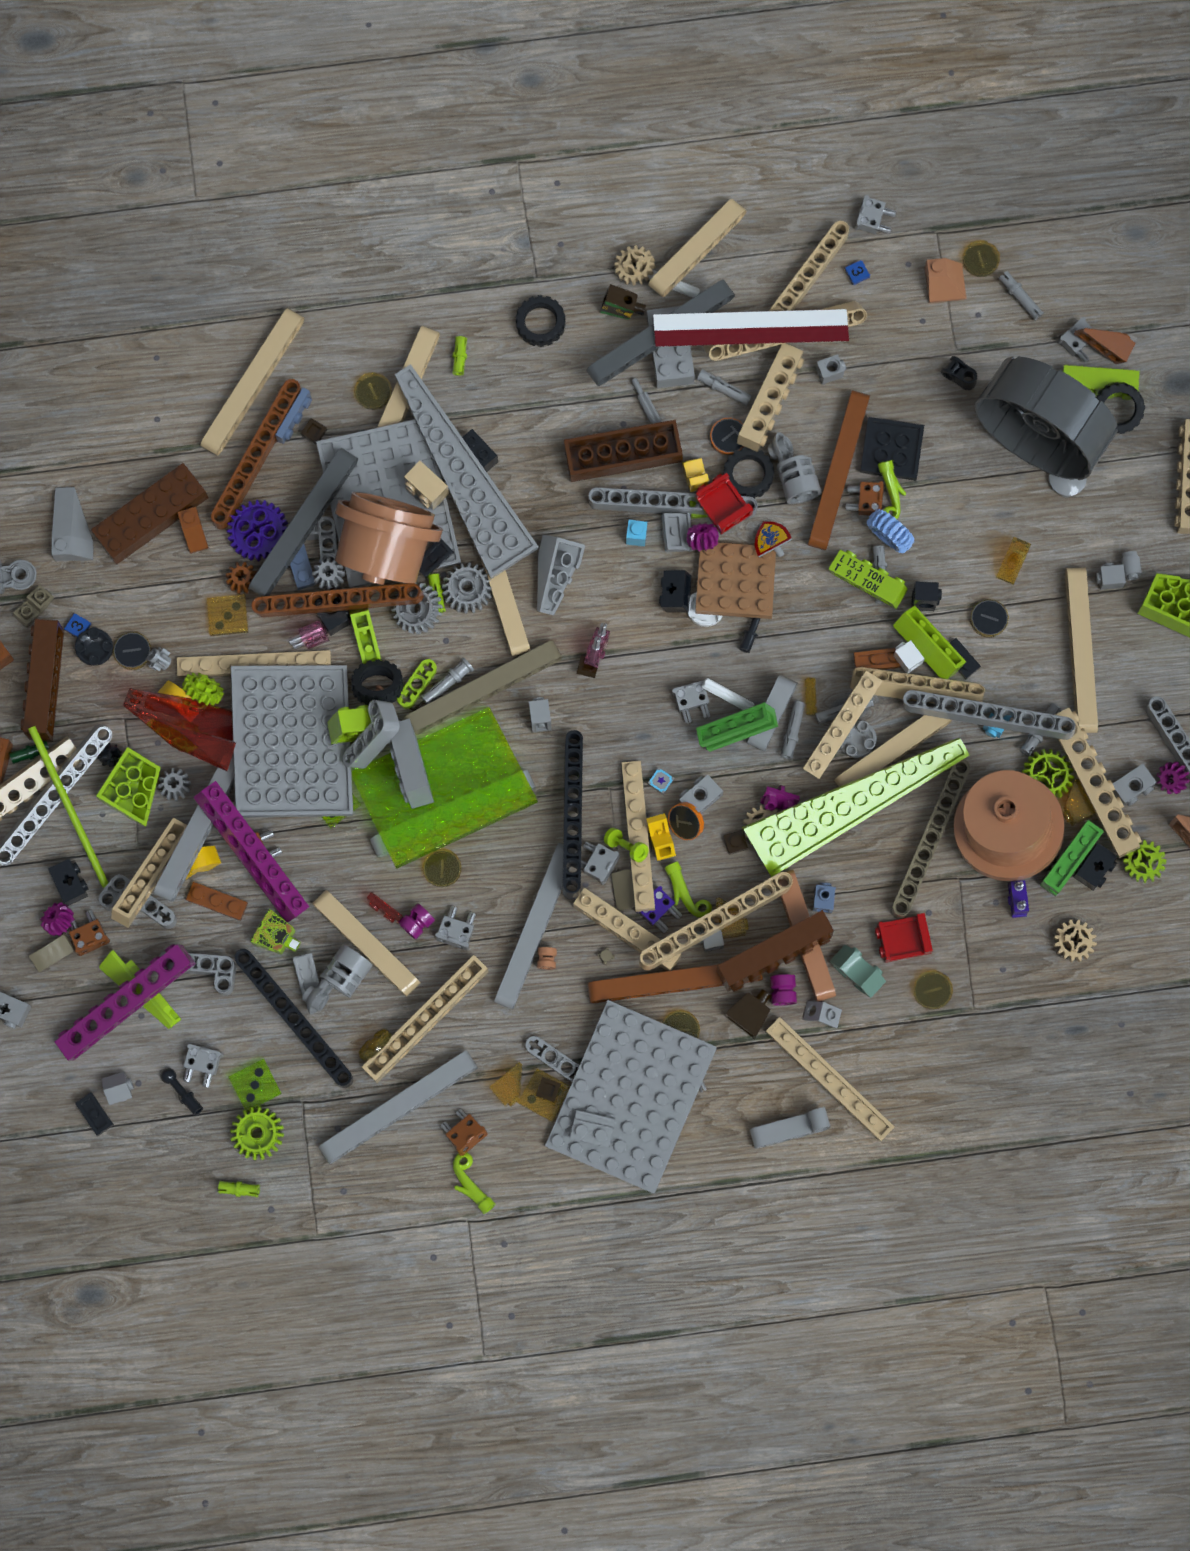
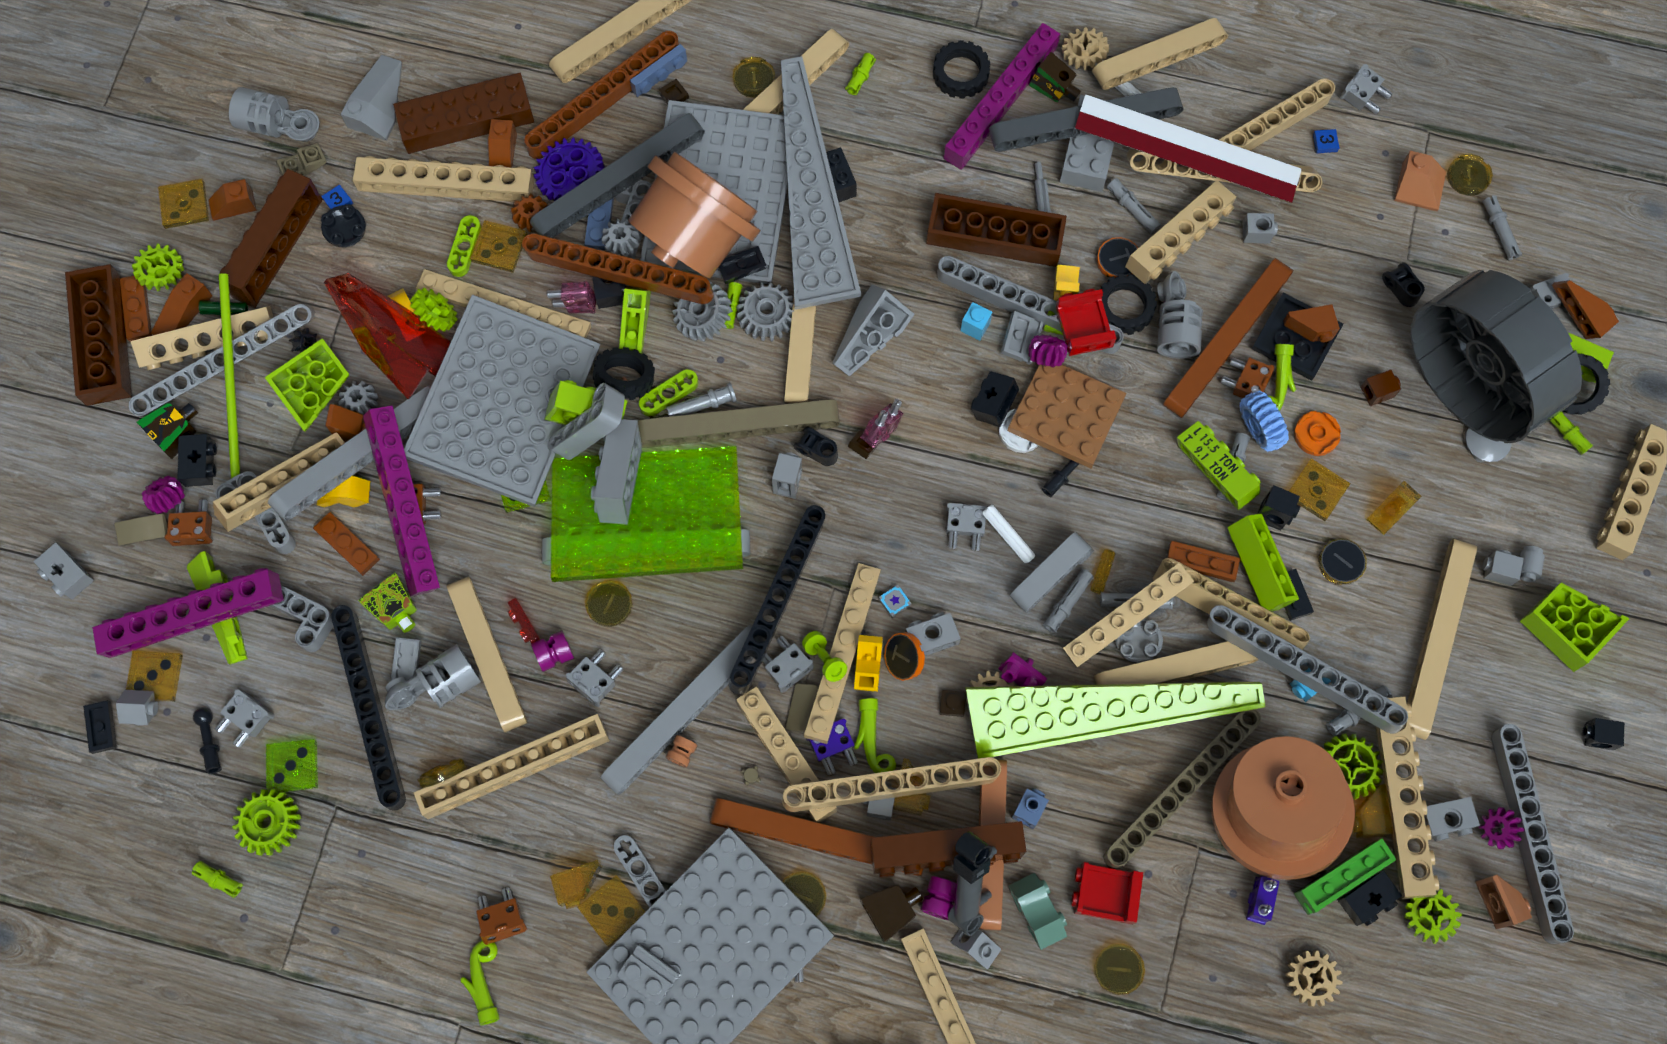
camera: 20 degrees right, 5 degrees down
(34, 864) = (167, 425): none -> torso
(115, 1058) = (155, 673): none -> clear yellow tile
(132, 650) = (381, 245): black tile -> none
(152, 585) = (367, 180): none -> tan brick
(159, 659) = (404, 263): light grey gear -> none
(178, 807) = (344, 422): none -> dark orange slope
(192, 613) = (462, 236): none -> lime beam
(398, 1107) = (437, 856): light grey beam -> none
(426, 486) = (764, 183): tan brick -> none
(548, 1089) = (617, 906): dark brown plate -> none
(550, 683) = (813, 444): none -> black piece
(583, 333) = (1000, 96): none -> magenta brick
(737, 727) = (1005, 571): bright green brick -> none
(771, 537) = (1123, 380): shield -> none
(798, 957) = (971, 865): none -> piece
(901, 435) = (1314, 323): none -> dark orange slope
(908, 656) = (1233, 567): white brick -> none
(935, 522) = (1317, 433): none -> orange tile
(951, 567) = (1319, 489): none -> clear yellow tile
(971, 466) = (1381, 387): none -> reddish brown brick
(1129, 448) = (1571, 433): none -> lime pin

